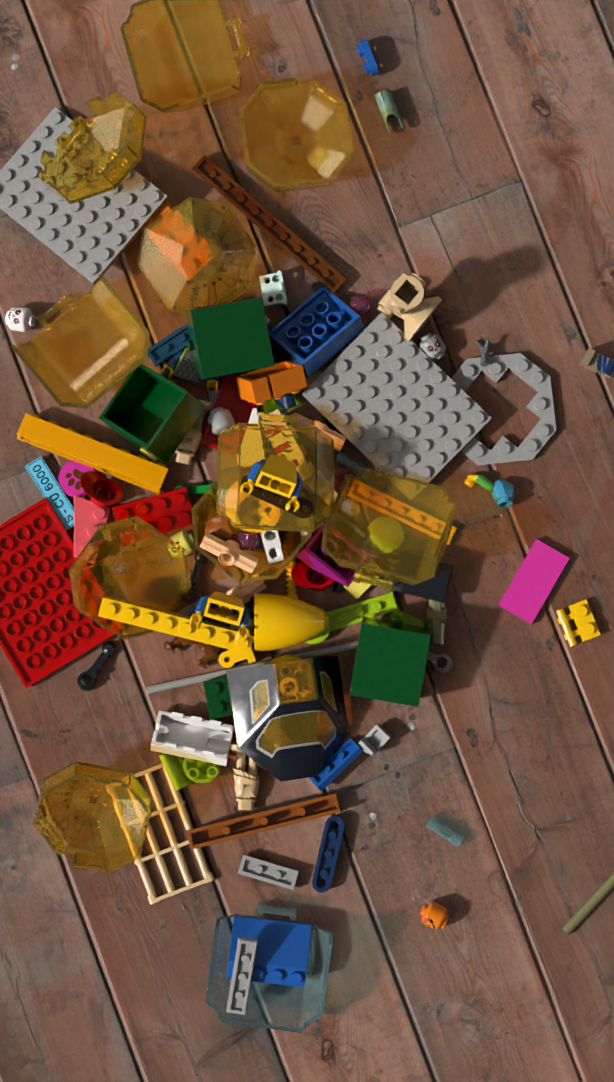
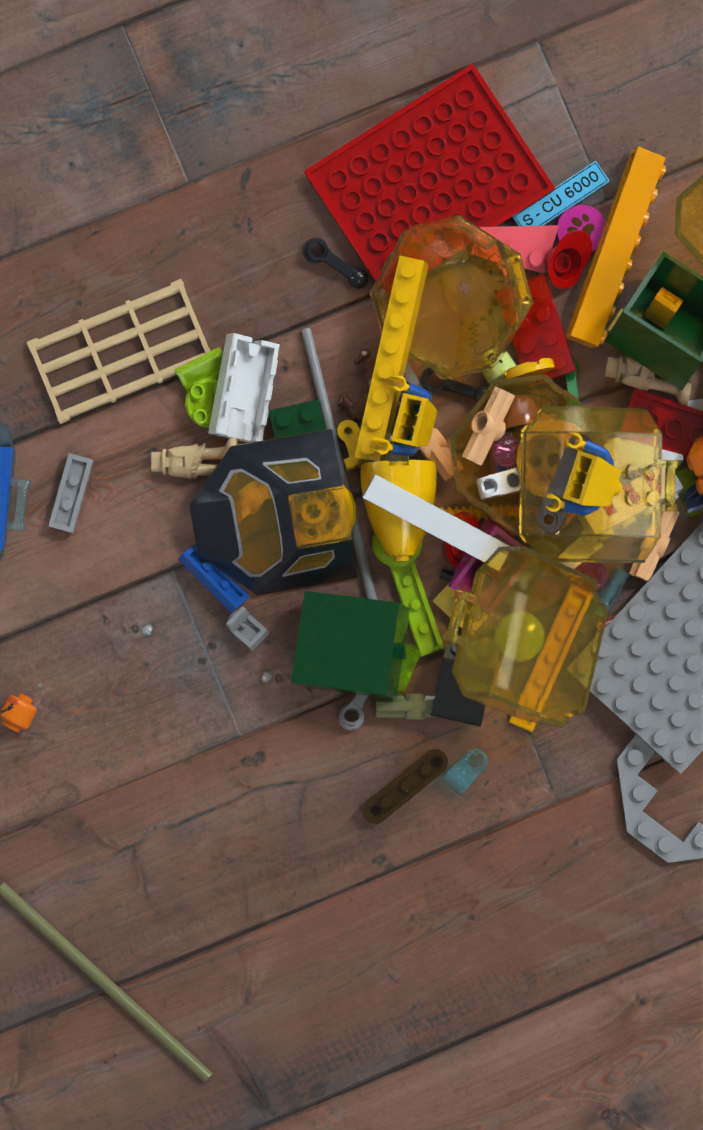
camera: 90 degrees right, 0 degrees up
(98, 833) = (117, 271): clear yellow windscreen -> none
(140, 418) = (663, 307): none -> light orange slope
(186, 521) = (530, 369): none -> yellow tile
(220, 420) = (665, 412): light grey head -> none
(263, 821) = (137, 485): dark orange tile -> none
(298, 596) = (431, 518): none -> white tile
(328, 854) = (96, 571): dark blue plate -> none
(444, 831) = (128, 723): clear light blue pin -> none
(479, 479) = (597, 761): arm -> none
(487, 580) = (462, 774): none -> clear light blue piece
(495, 623) = (405, 786): none -> dark brown plate
(503, 493) = (579, 792): dark azure rock -> none
(533, 581) = (463, 836): dark pink tile -> none
(583, 621) = (413, 904): yellow plate -> none

